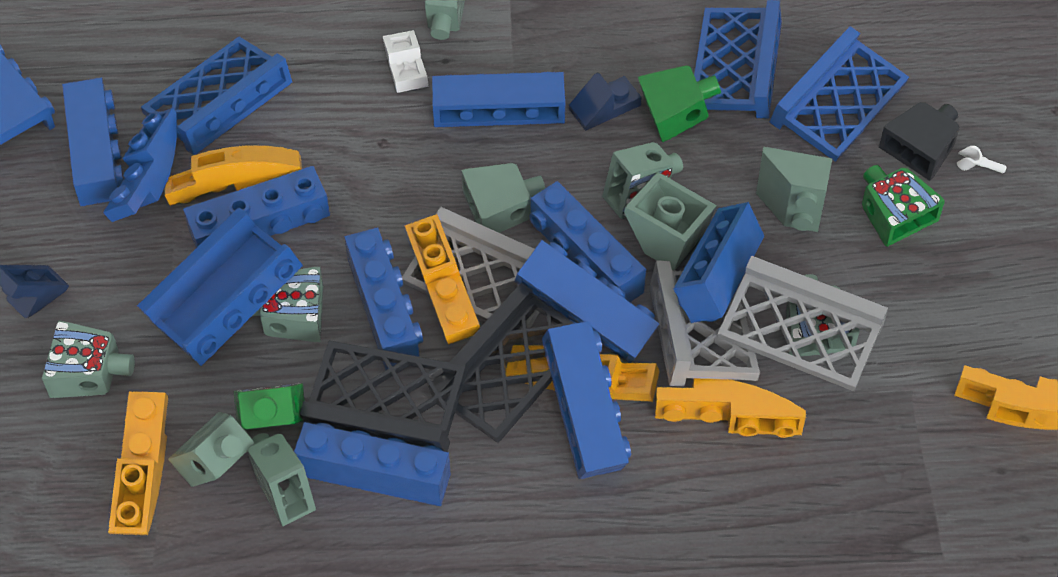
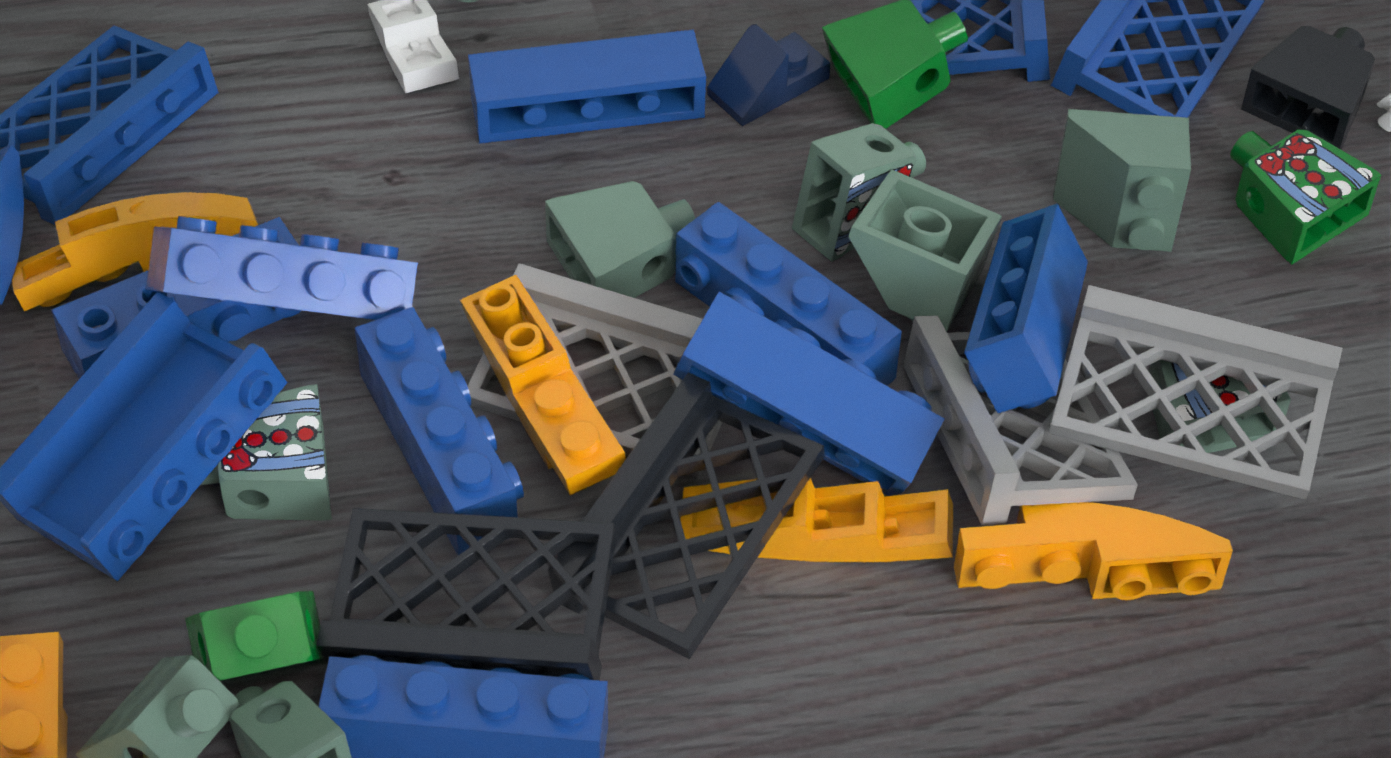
camera: 10 degrees left, 5 degrees down
(307, 202) = (281, 275): none -> brick
(585, 399) = (839, 562): blue brick -> none

